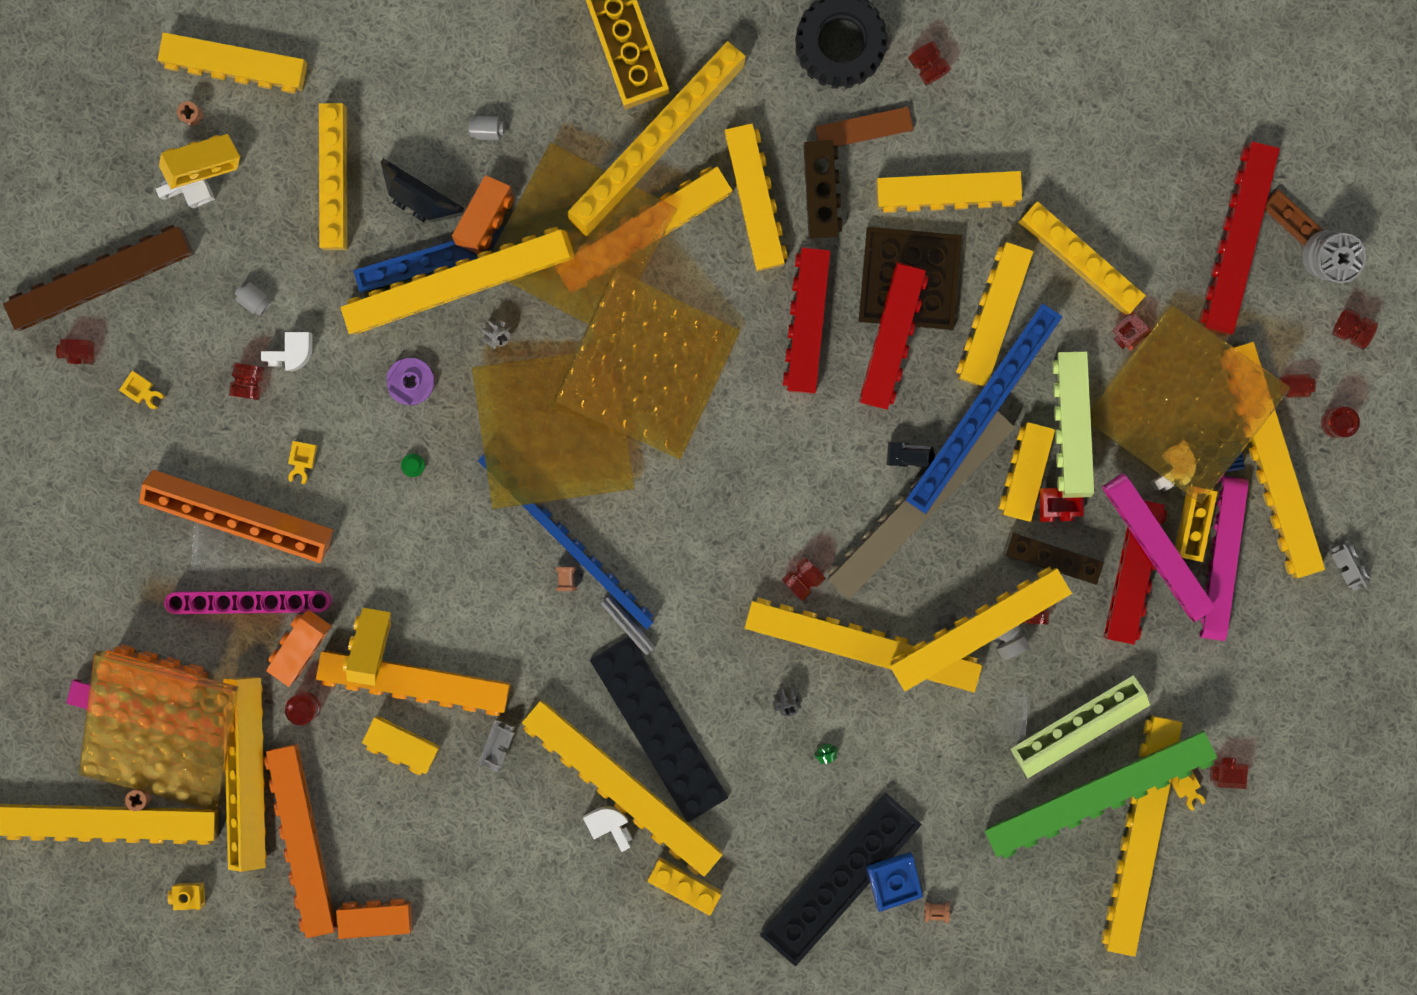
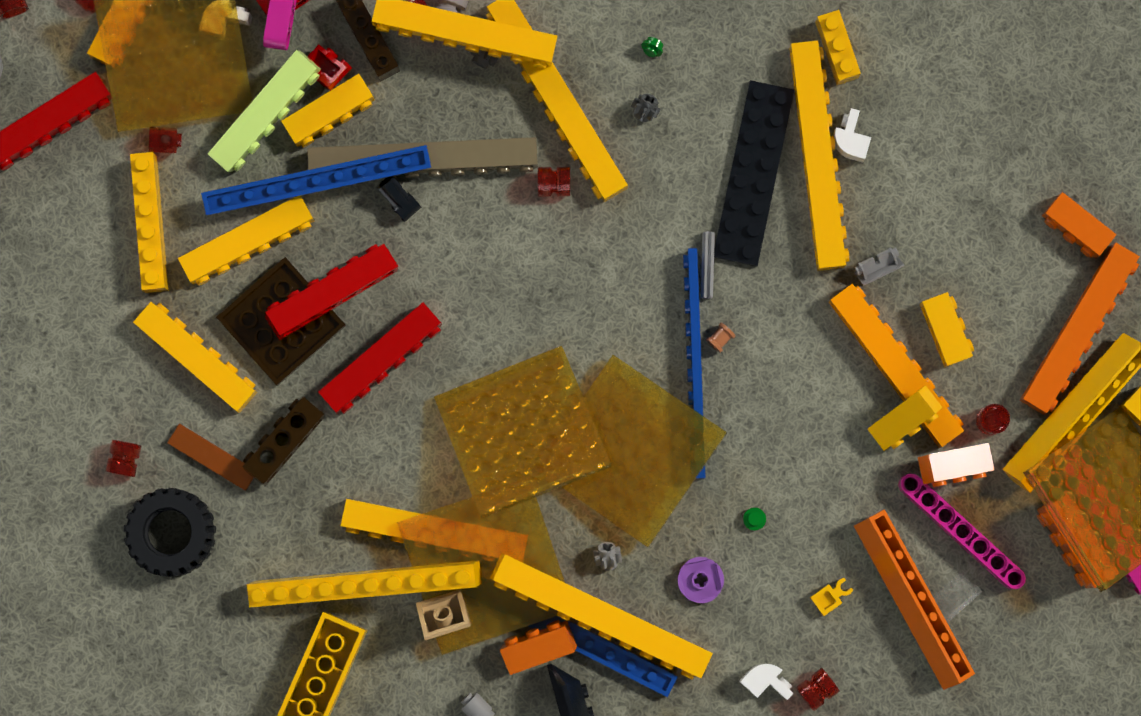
camera: 130 degrees left, 5 degrees down
(574, 170) = (443, 614): none -> tan slope
(754, 197) = (335, 479): yellow brick -> none

